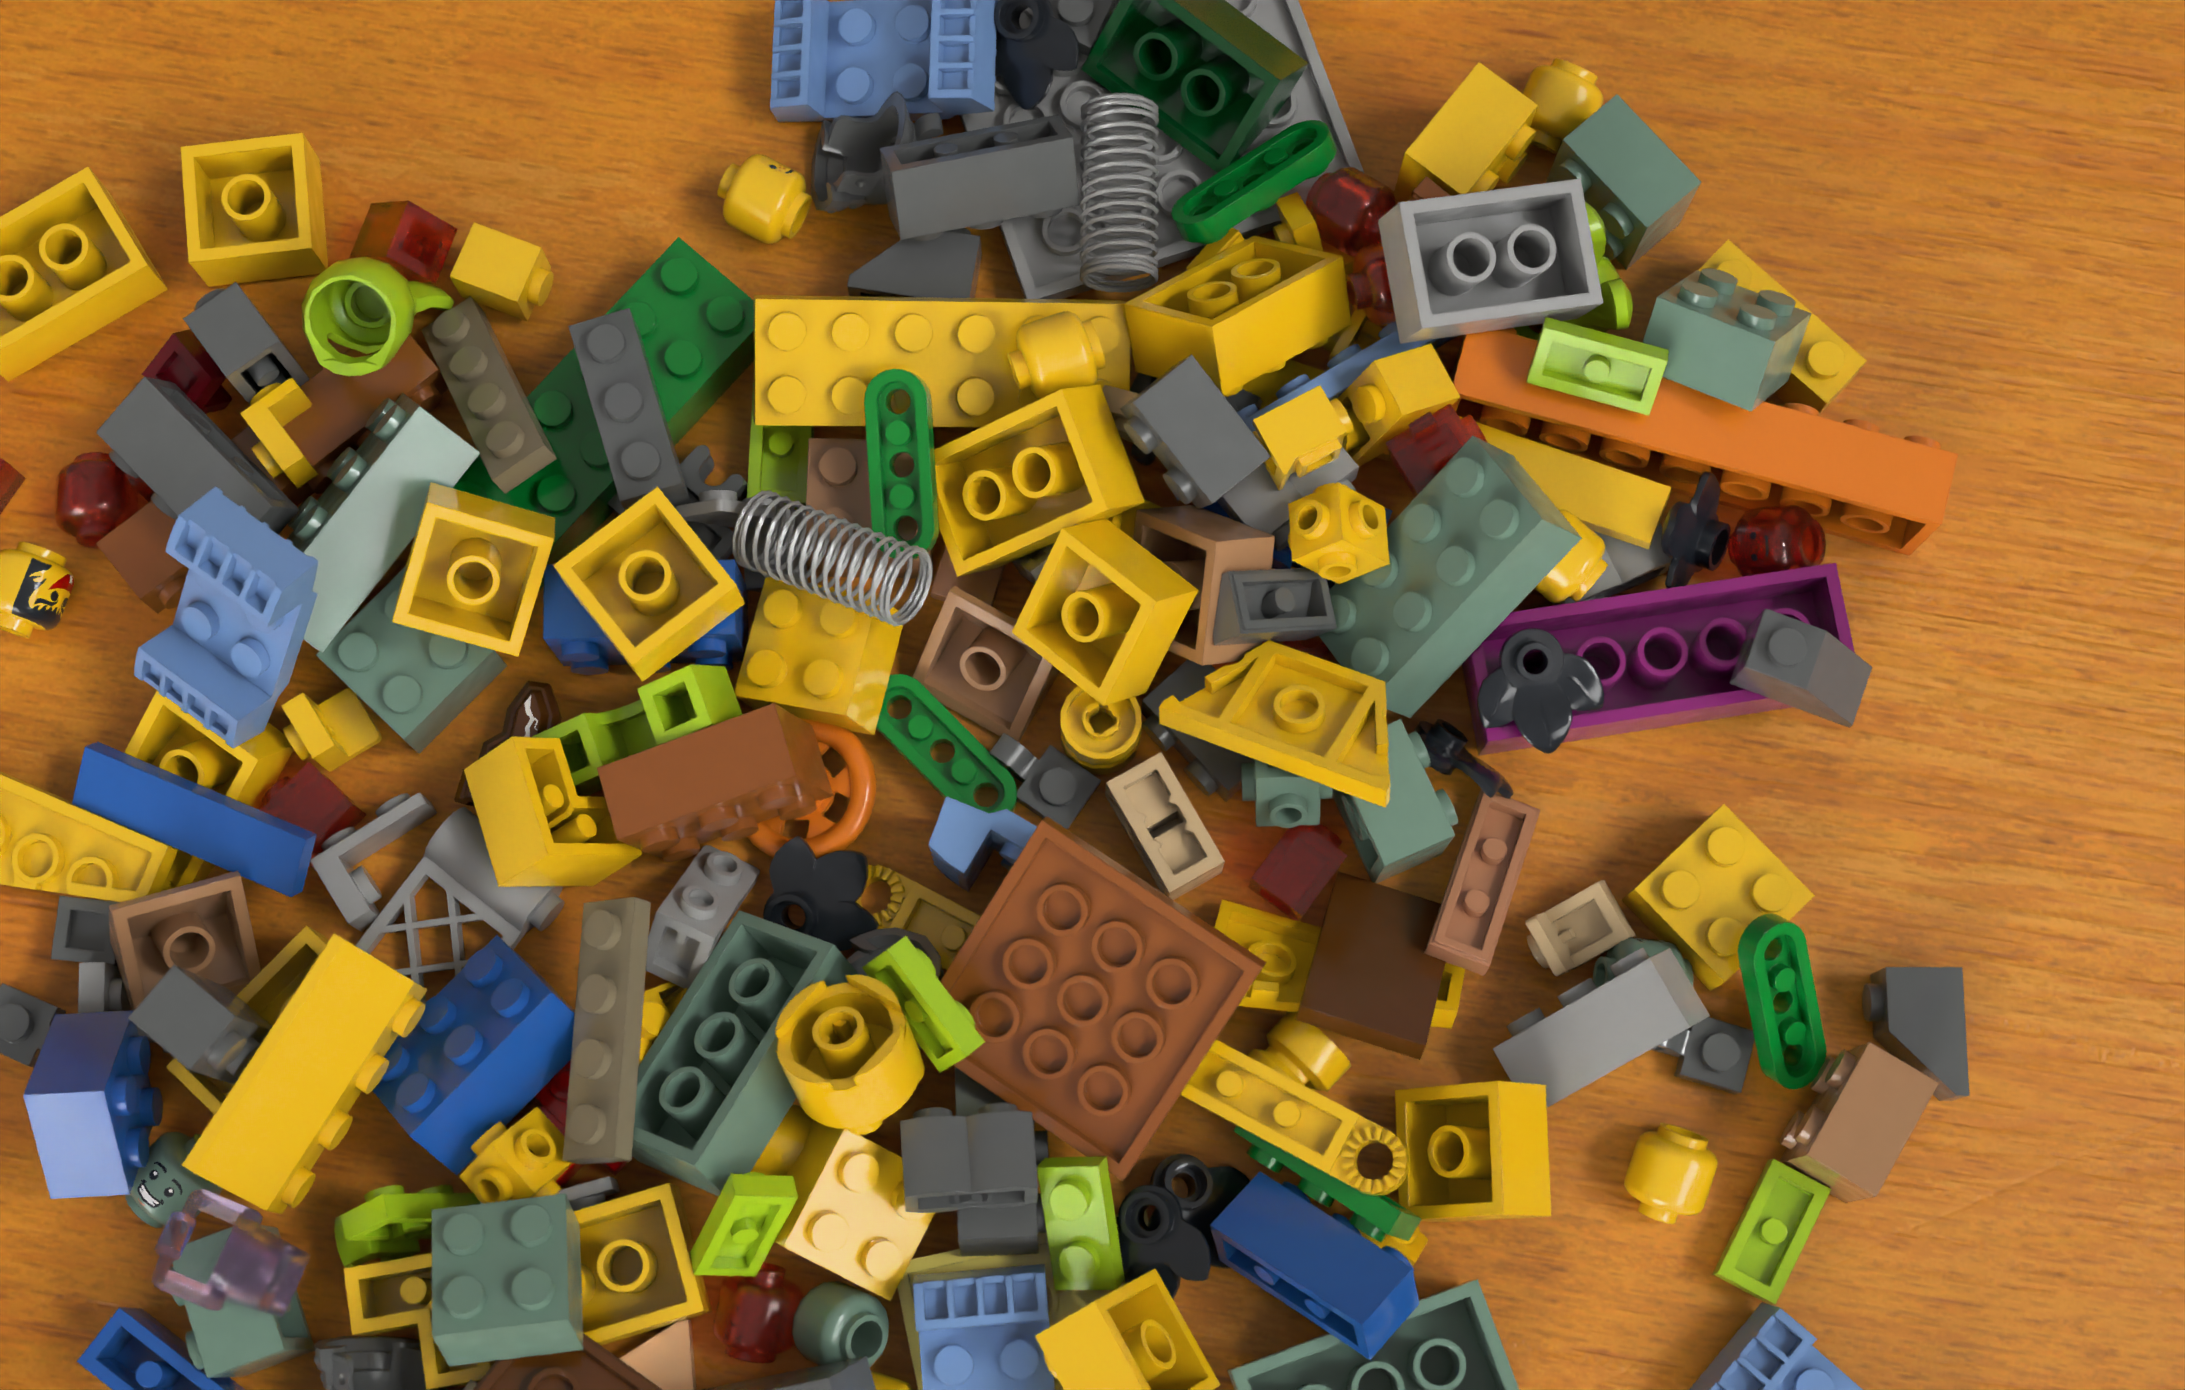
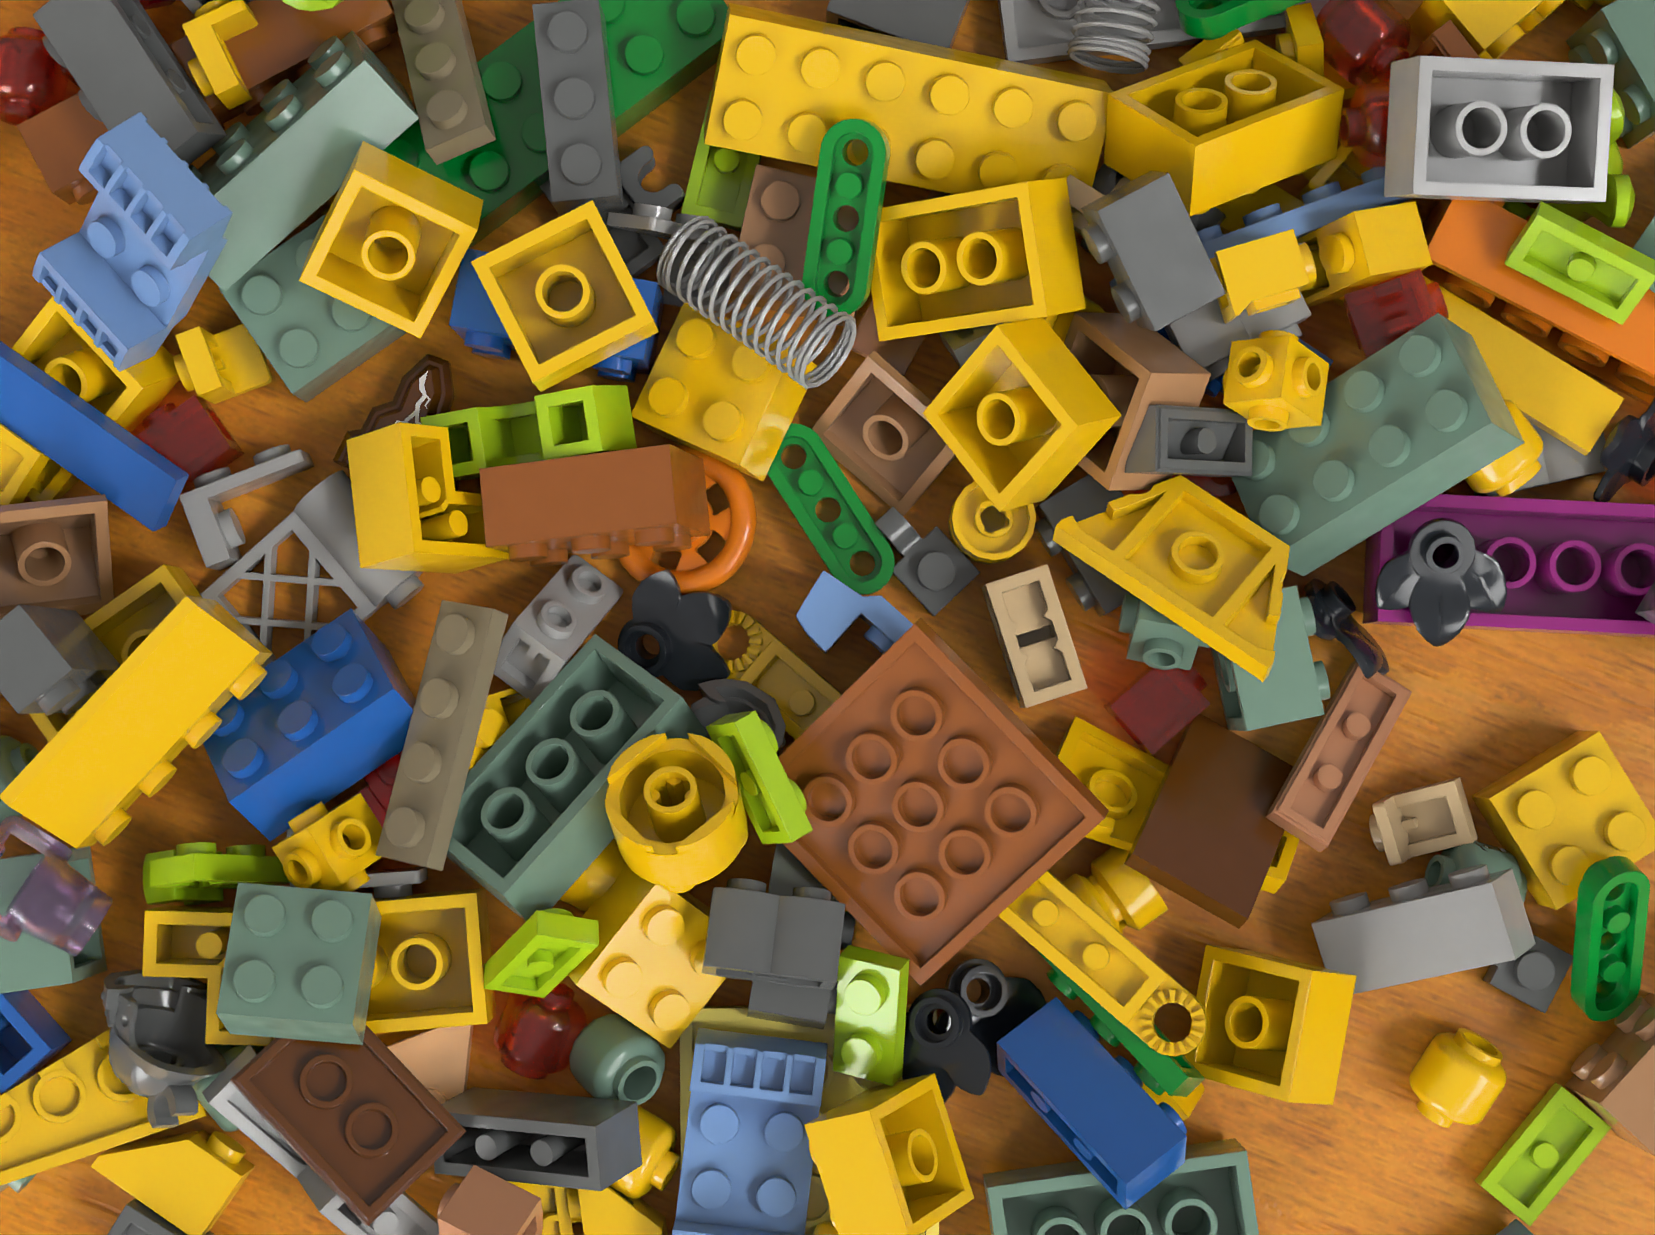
camera: 10 degrees right, 10 degrees up
(1056, 354) = (1028, 138): yellow head -> none

